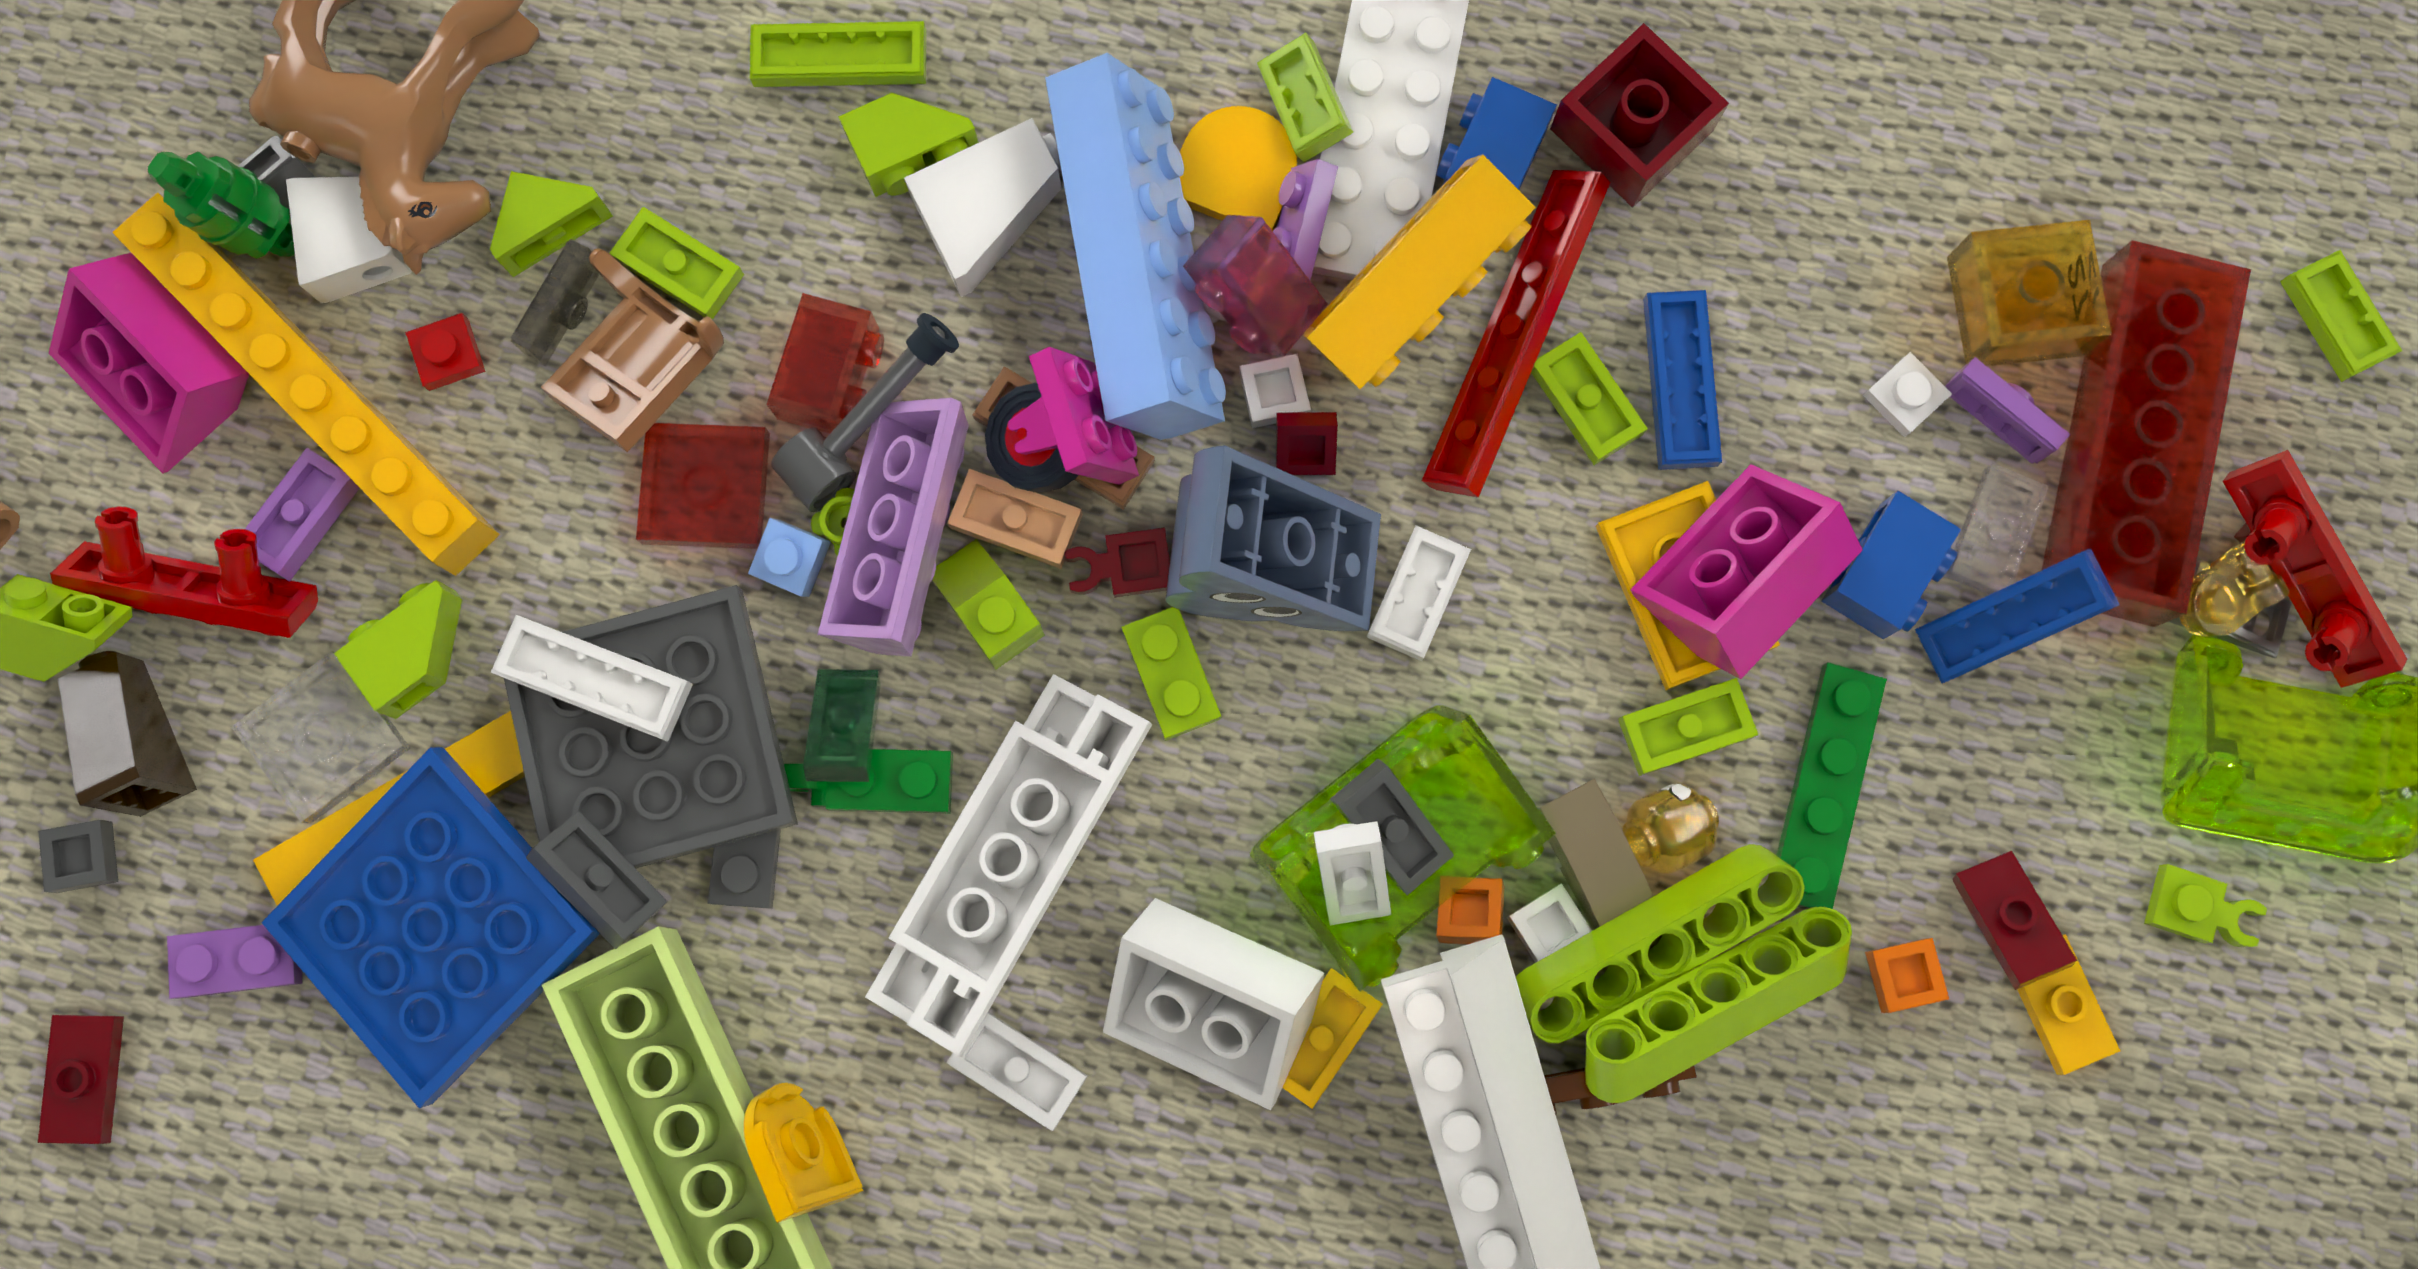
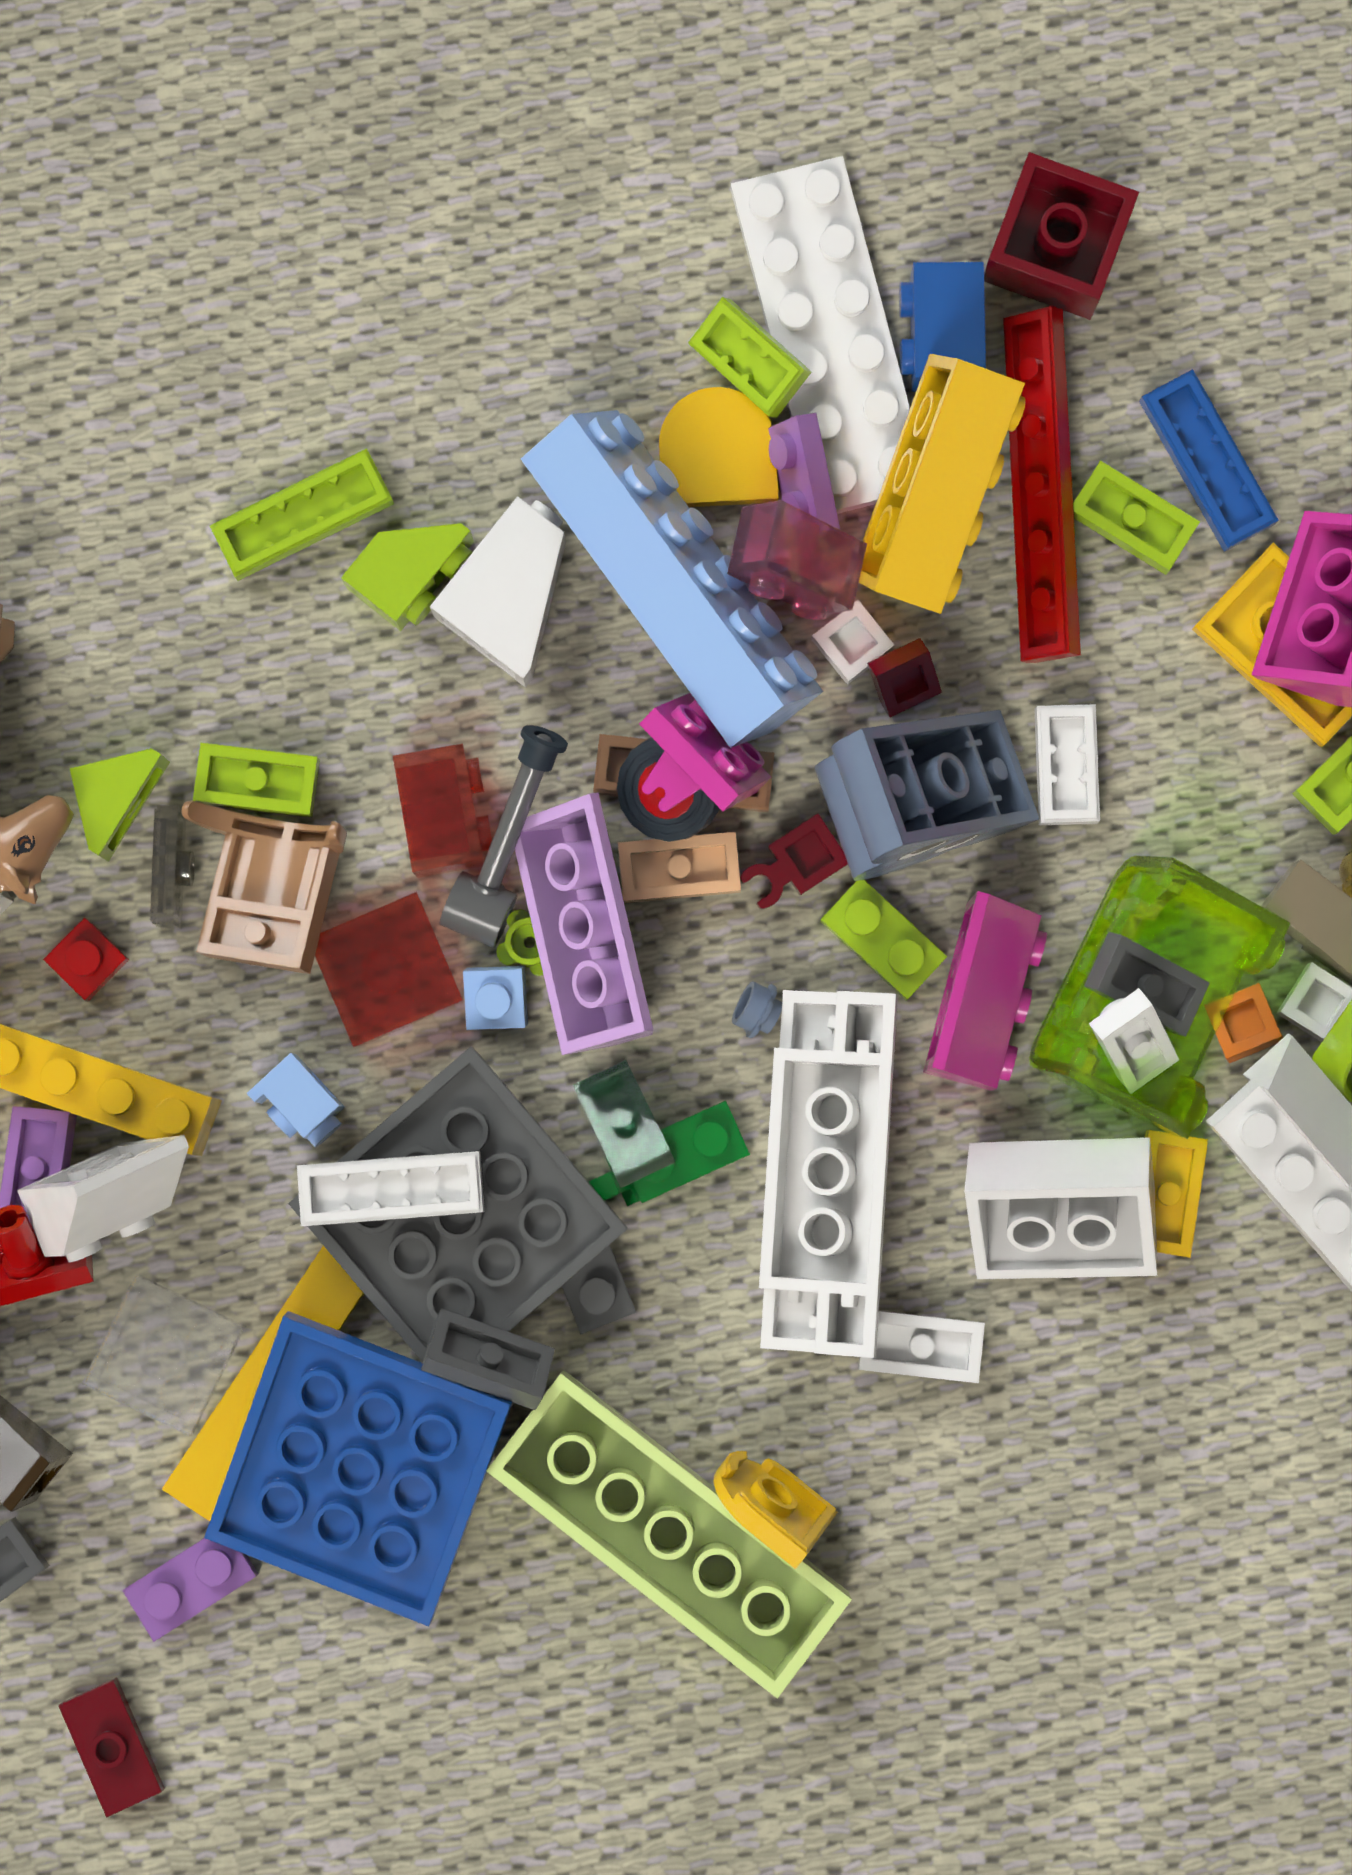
camera: 25 degrees left, 5 degrees up
(330, 561) = (104, 1196): none -> white slope
(405, 652) = (201, 1244): lime slope -> none
(562, 563) = (298, 1101): none -> light blue brick
(987, 604) = (691, 954): lime slope -> none
(1022, 681) = (757, 1009): none -> sand blue plate
(1237, 763) = (985, 993): none -> dark pink slope

